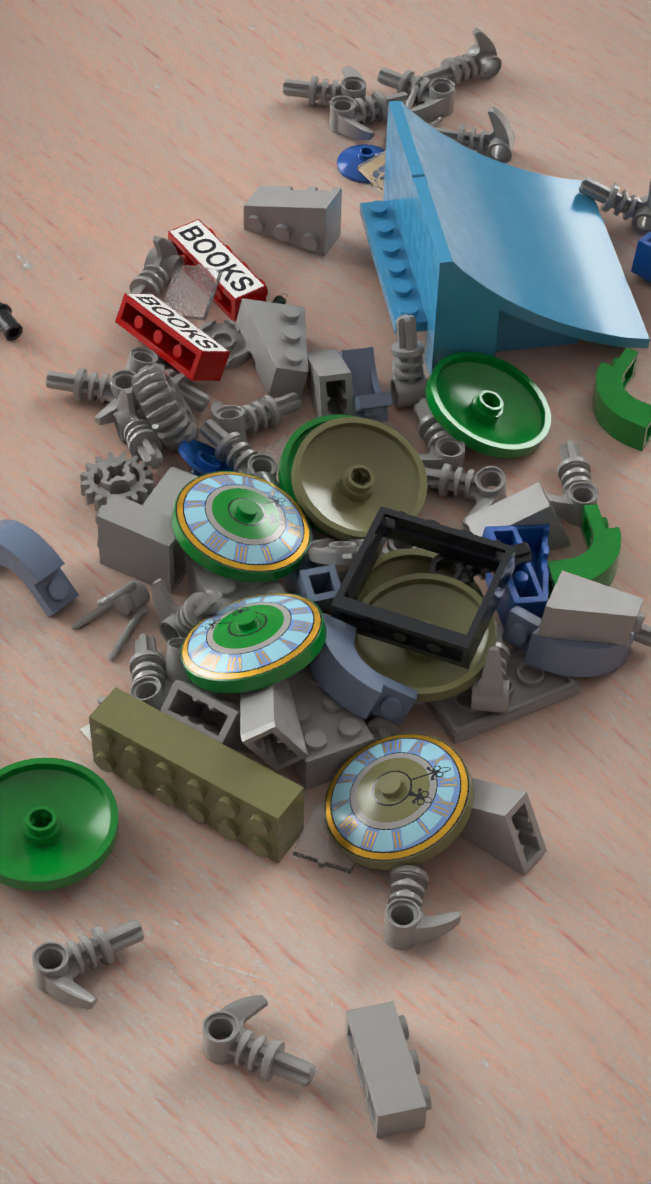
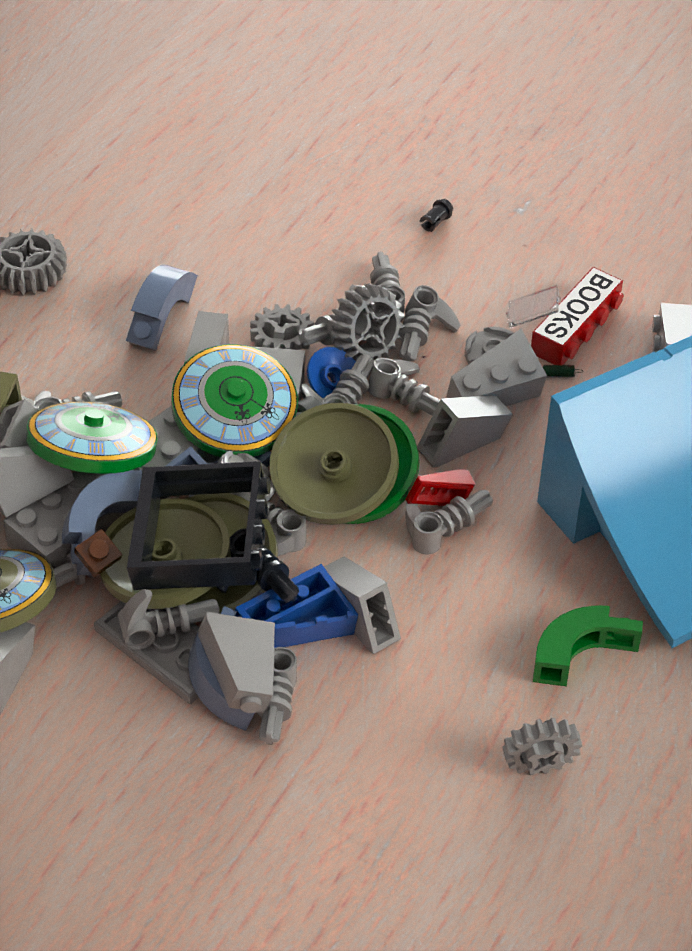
camera: 70 degrees right, 0 degrees up
(126, 600) = (156, 375): light grey plant -> none
(157, 268) = (561, 275): light grey piece -> none
(172, 337) = (463, 309): red brick -> none
(178, 620) = (146, 404): light grey piece -> none
(367, 396) = (480, 451): sand blue arch -> none
(404, 419) = (445, 487): none -> red slope
(407, 373) = (508, 476): light grey piece -> none
(413, 681) = (98, 553): none -> reddish brown plate
(471, 484) = (399, 562): light grey piece -> none
(488, 404) = (504, 538): green dish -> none
(576, 483) = (421, 637): light grey piece -> none
(600, 559) = (343, 673): green arch -> none

